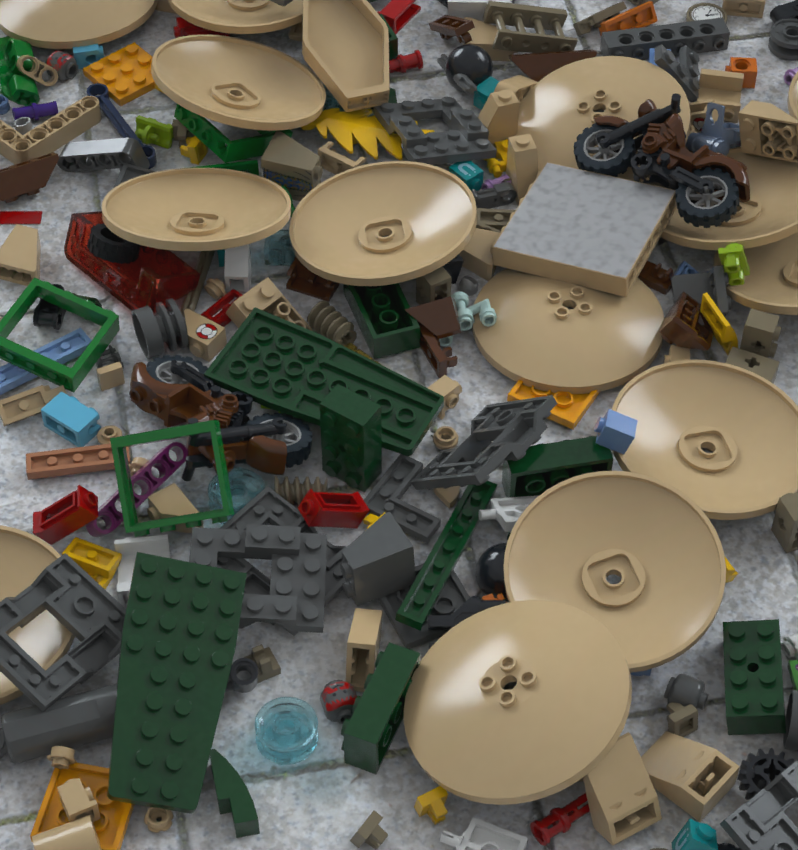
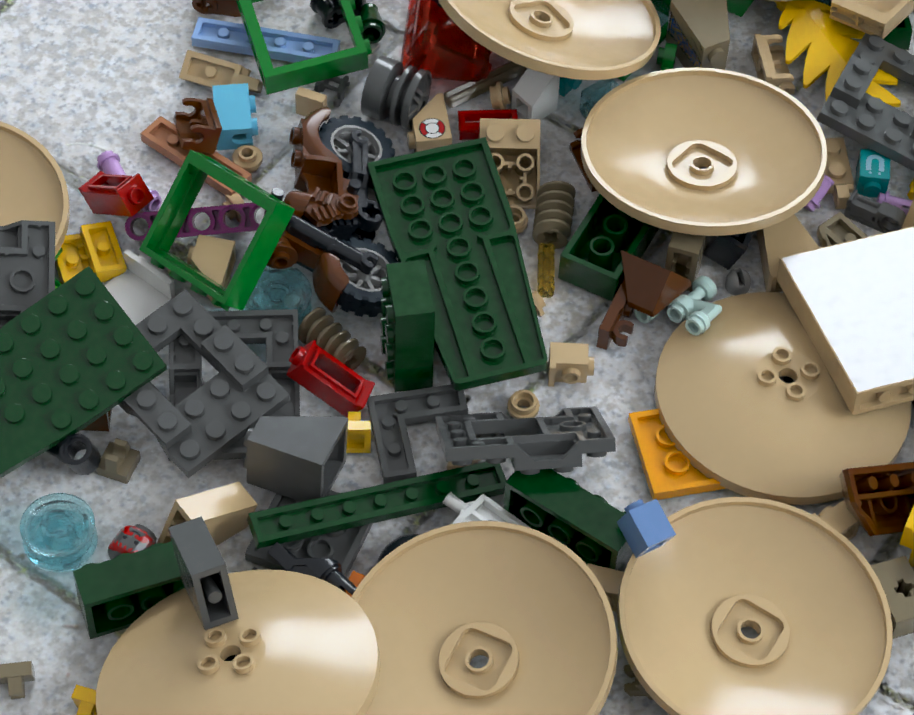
camera: 45 degrees right, 5 degrees up
(27, 506) = (109, 163): none -> lavender pin
(63, 437) = (200, 128): none -> reddish brown hinge
(437, 654) = (203, 573): none -> dark grey brick

